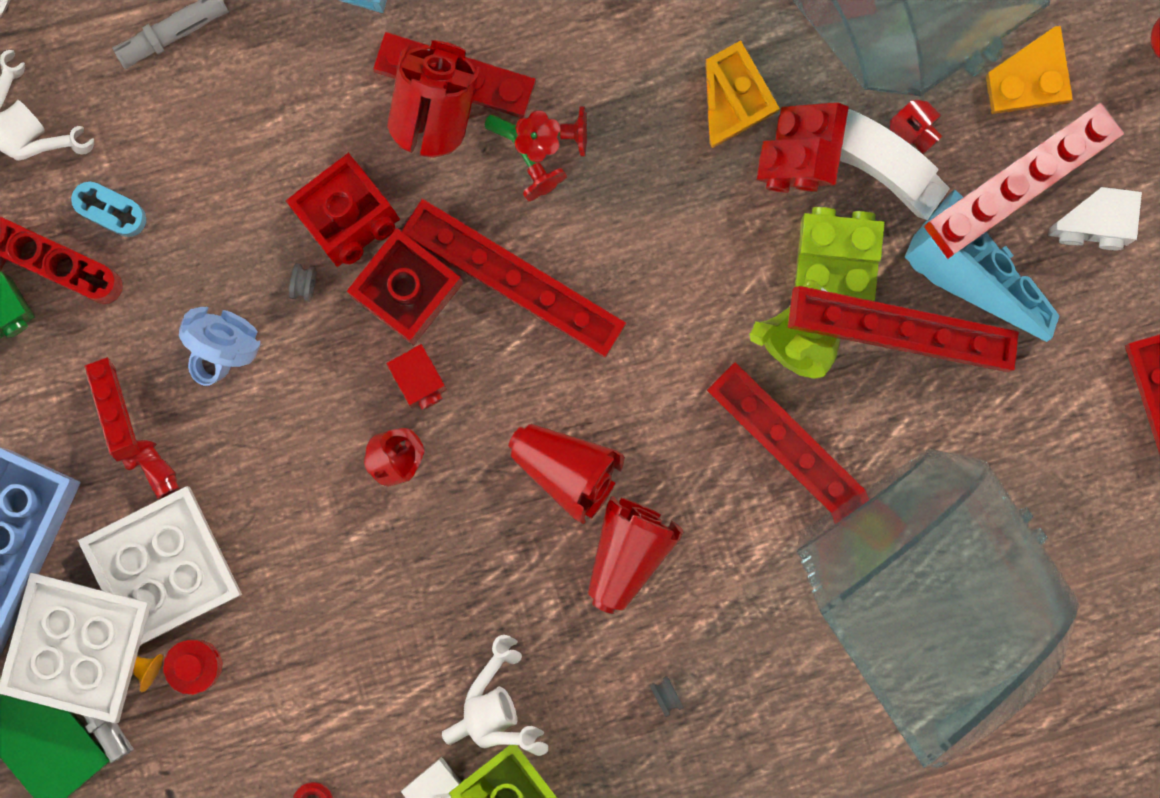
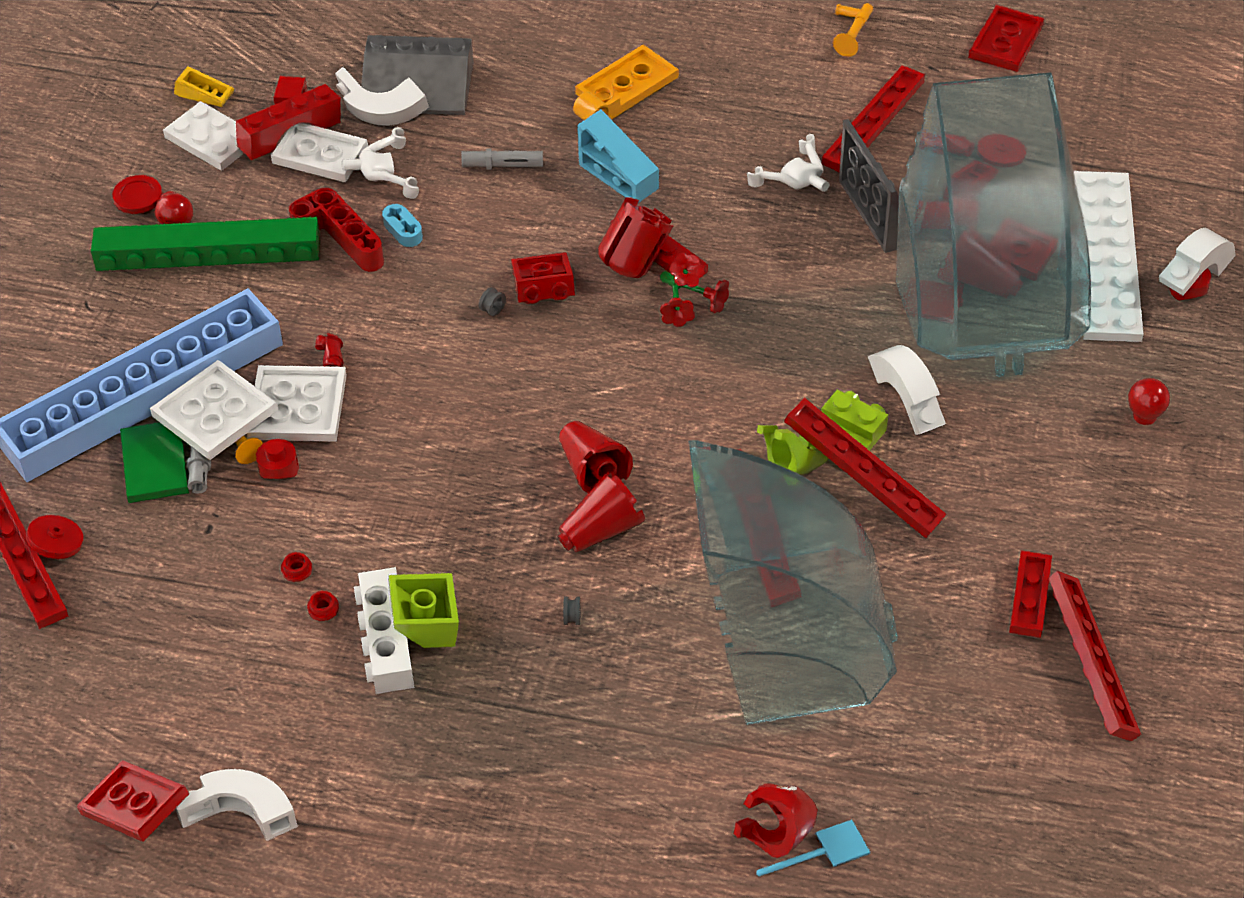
camera: 30 degrees right, 35 degrees down
(112, 409) = (329, 310): red piece -> none
(219, 340) = (417, 305): light blue tile -> none
(389, 460) = (480, 403): red piece -> none
(405, 286) = (553, 323): red brick -> none
(417, 378) = (528, 374): red brick -> none
(491, 714) = (453, 558): white piece -> none
(513, 278) = (626, 354): red plate -> none
(735, 94) = (830, 321): light orange wing -> none
(804, 148) = (855, 354): red plate -> none
(923, 116) = (947, 377): red piece -> none
(984, 278) = (934, 458): medium azure wedge -> none
(1023, 180) = (996, 425): plate -> none
(1032, 76) = (1037, 391): light orange wing -> none
(1104, 217) = (1039, 476): white slope -> none

